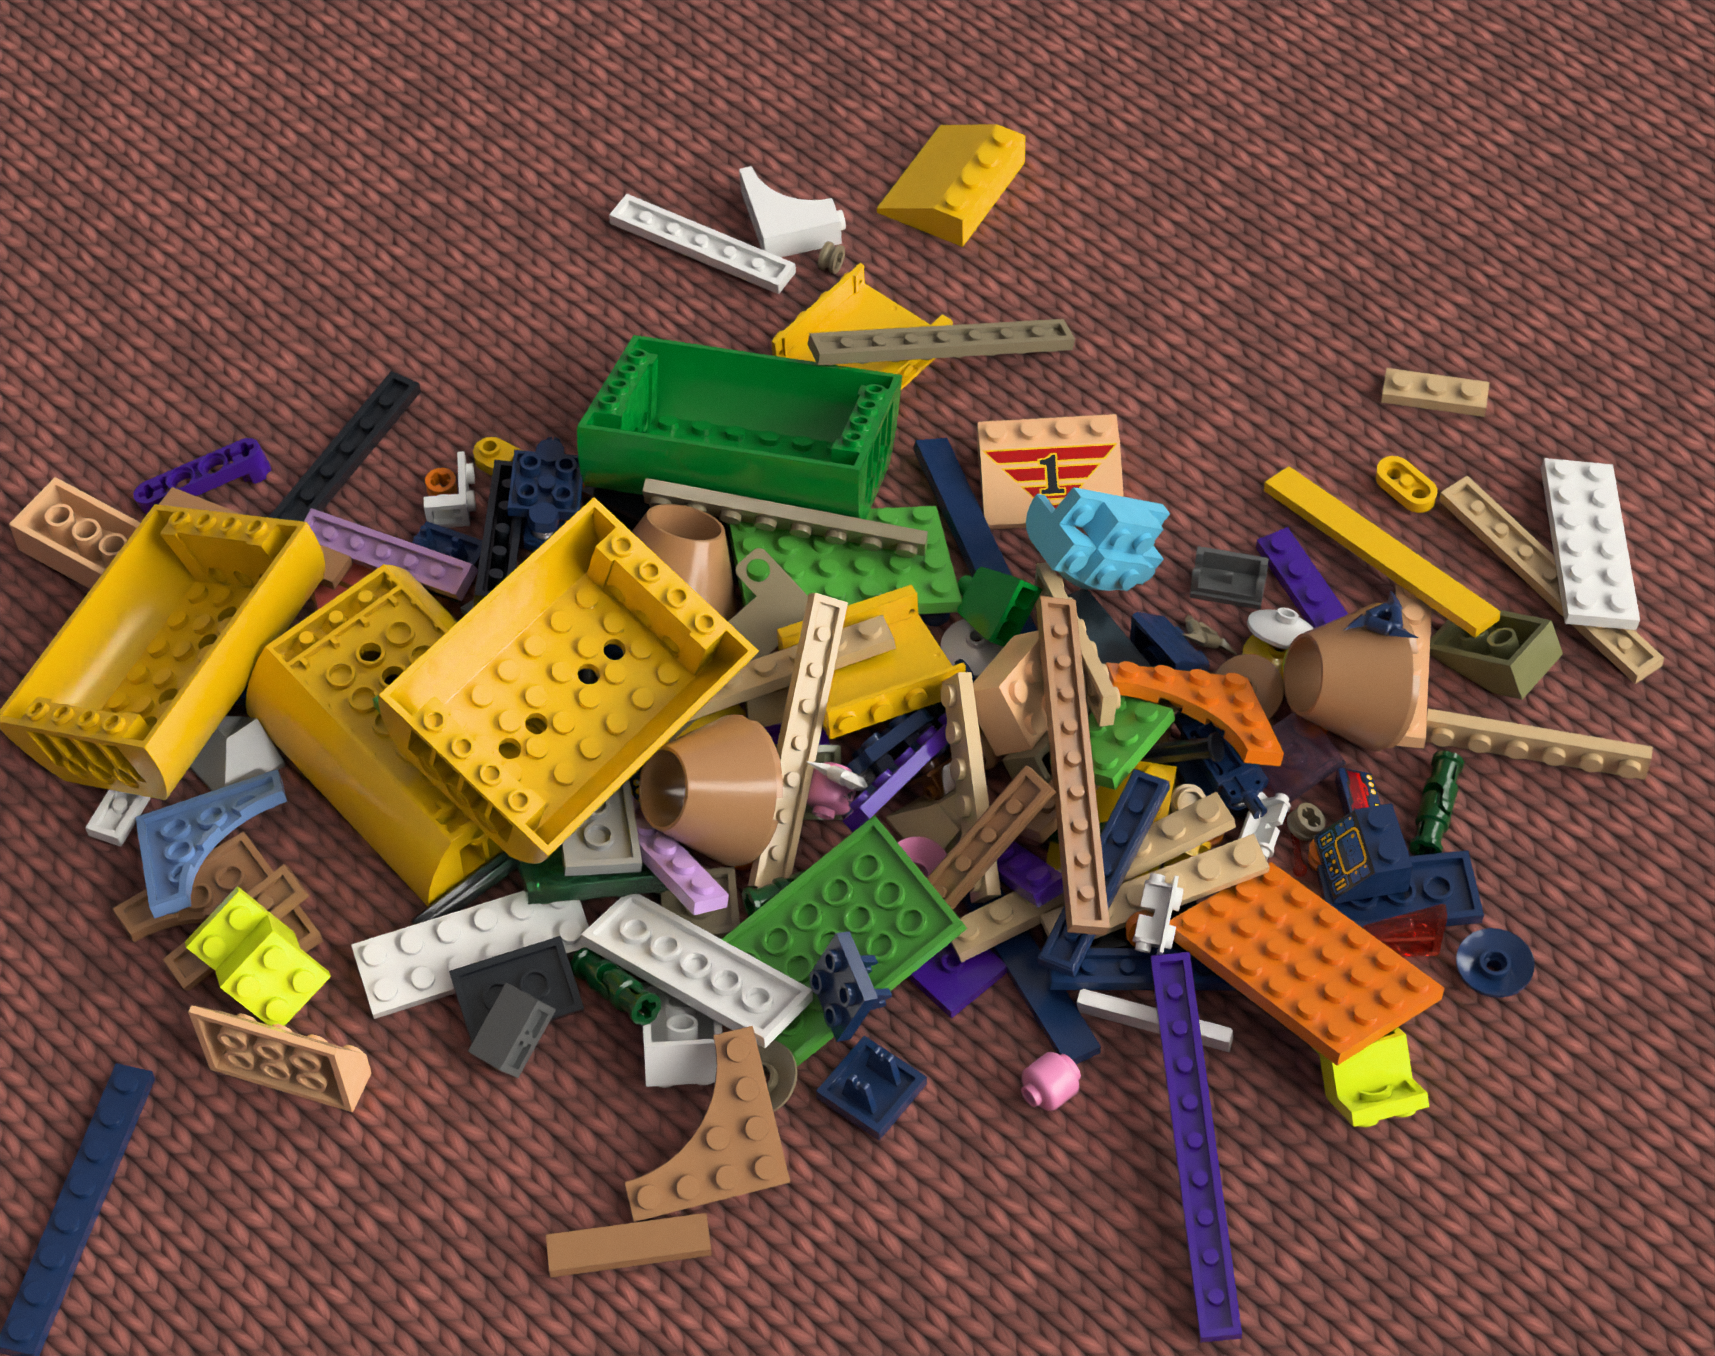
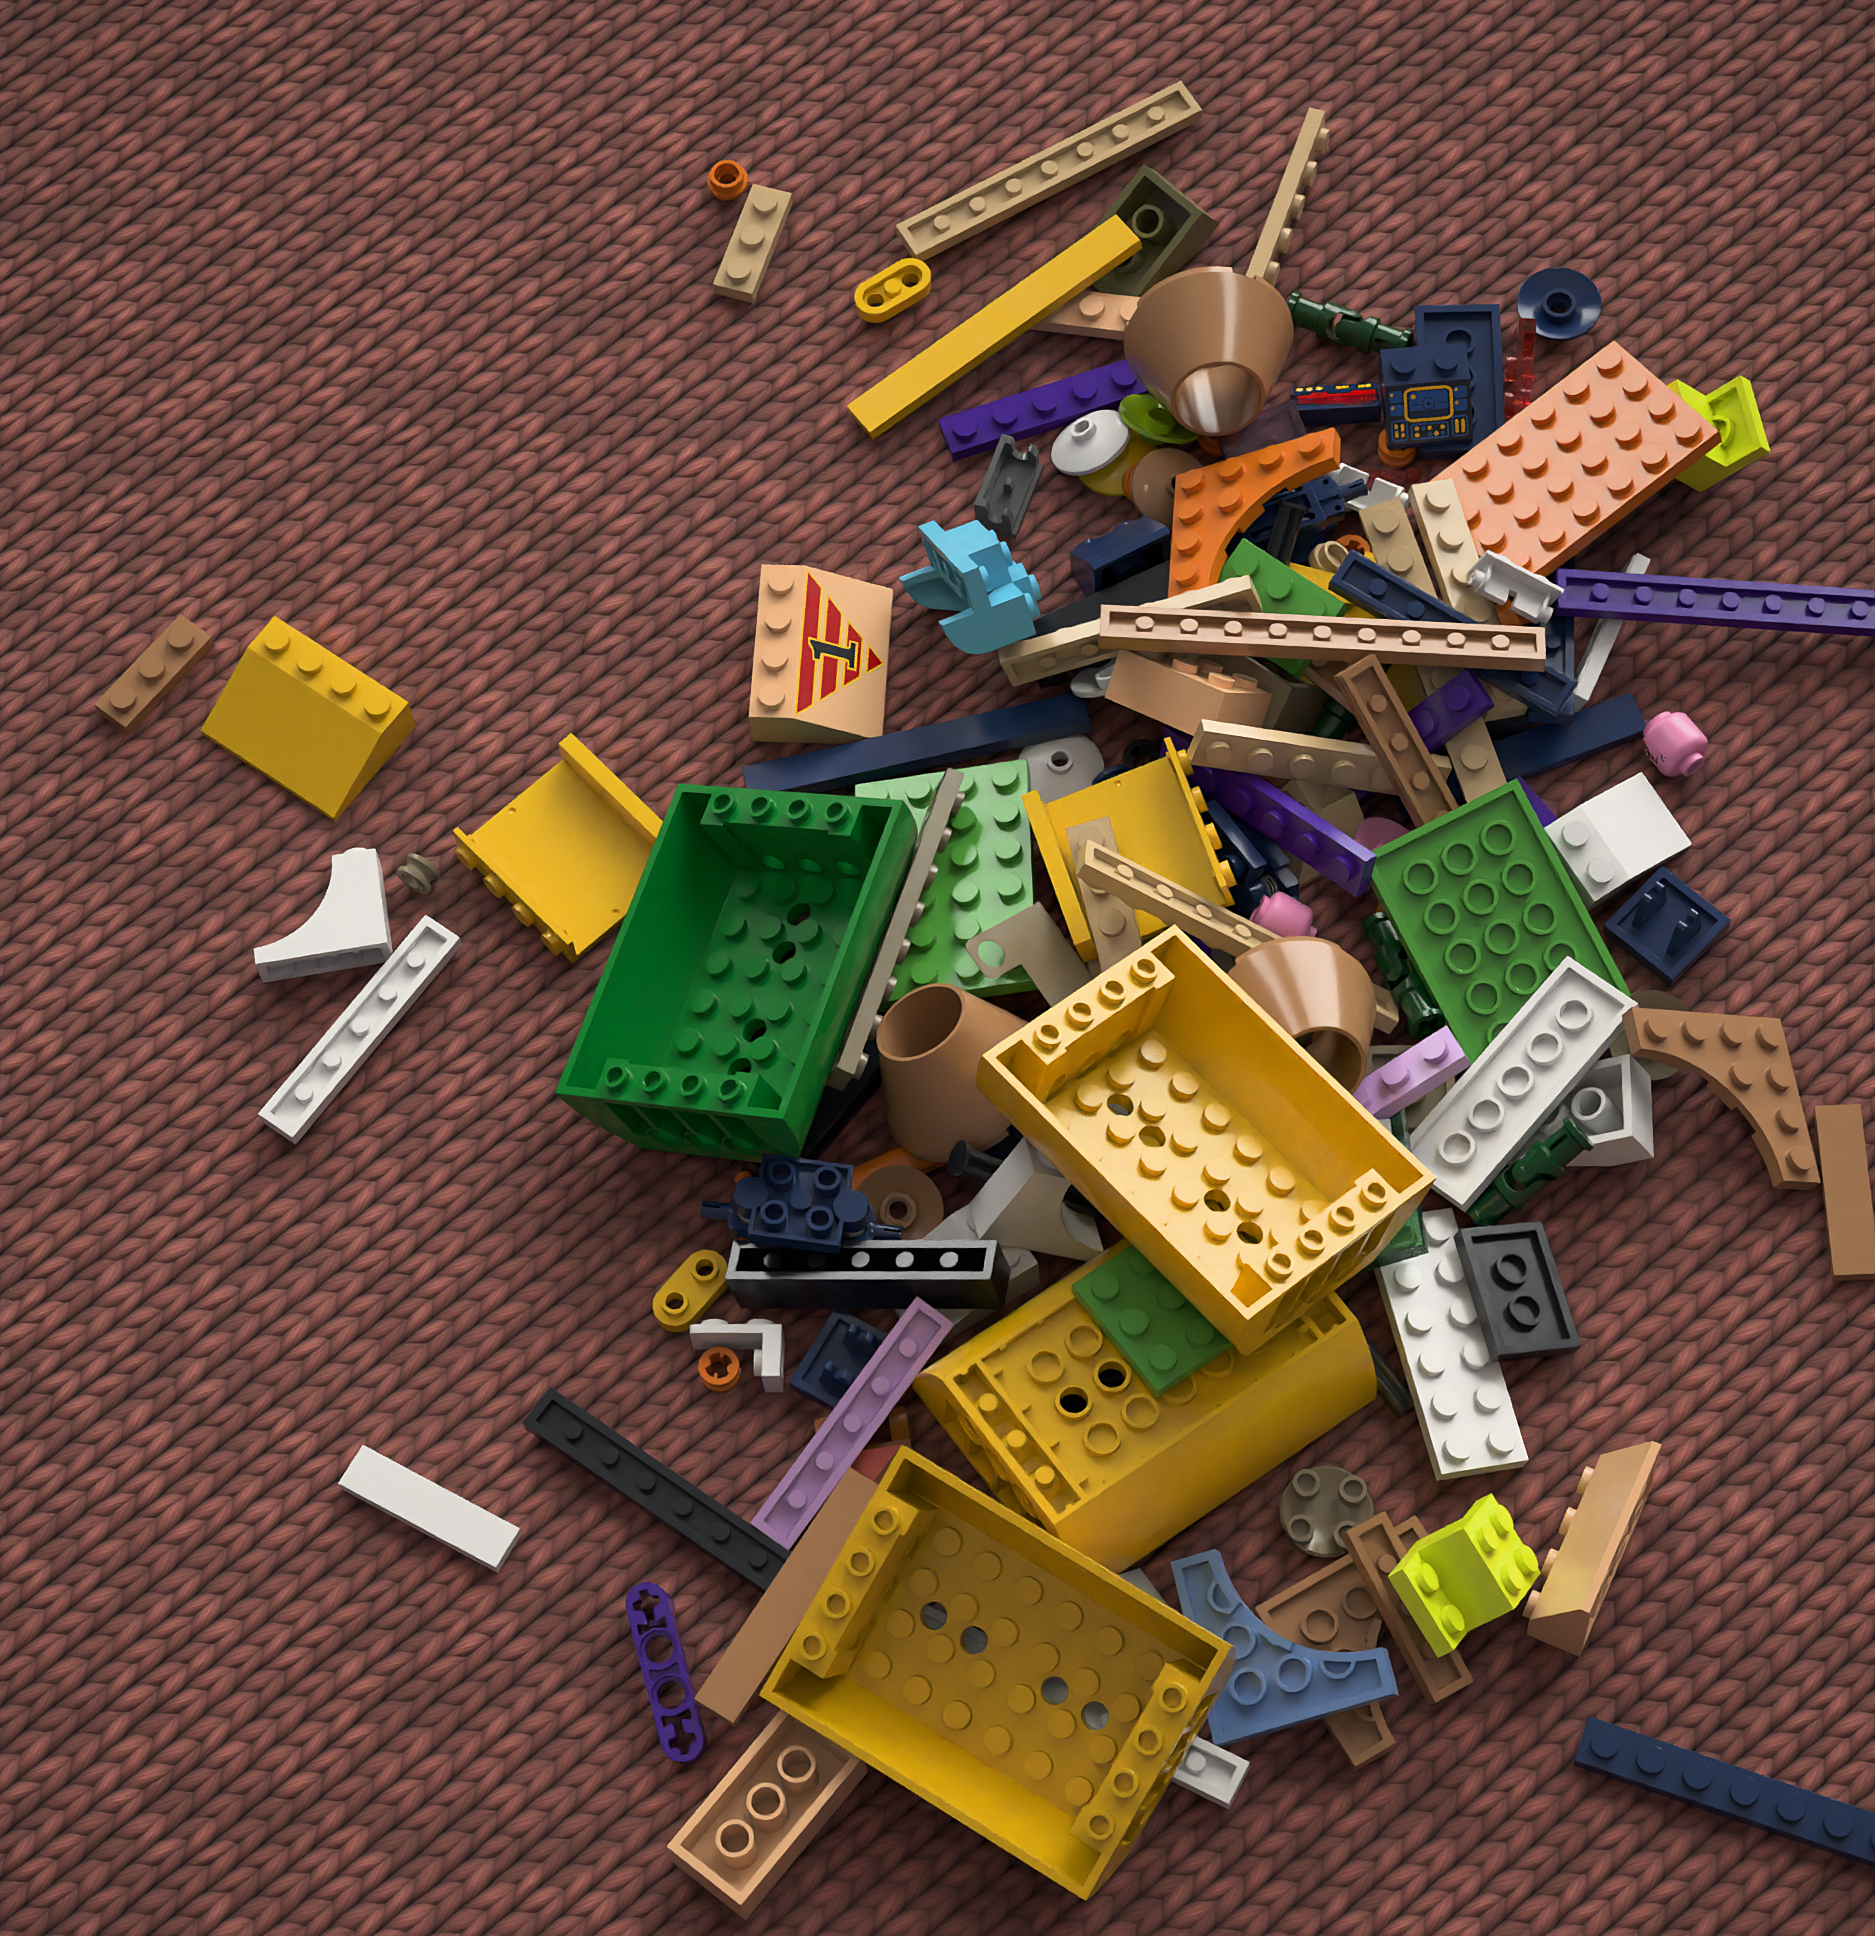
camera: 80 degrees left, 10 degrees up
(330, 335) = (430, 1508): none -> white tile
(330, 877) = (1322, 1506): none -> dark tan dish
(511, 1030) = (1576, 1293): dark grey hinge -> none
(841, 776) = (1294, 889): white piece -> none
(845, 986) = (1584, 911): dark blue plate -> none
(940, 341) = (615, 745): dark tan plate -> none
(945, 1036) = (1615, 839): none -> white slope
(983, 93) = (154, 674): none -> medium nougat plate
(996, 603) = (1034, 722): green torso -> none
(1205, 636) = (1082, 525): dark tan piece -> none
(1306, 821) = (1358, 454): dark tan bush -> none
(1374, 619) = (1186, 303): dark blue piece -> none
(1490, 366) = (727, 171): none -> orange plate
(1589, 544) = (1012, 122): white plate -> none

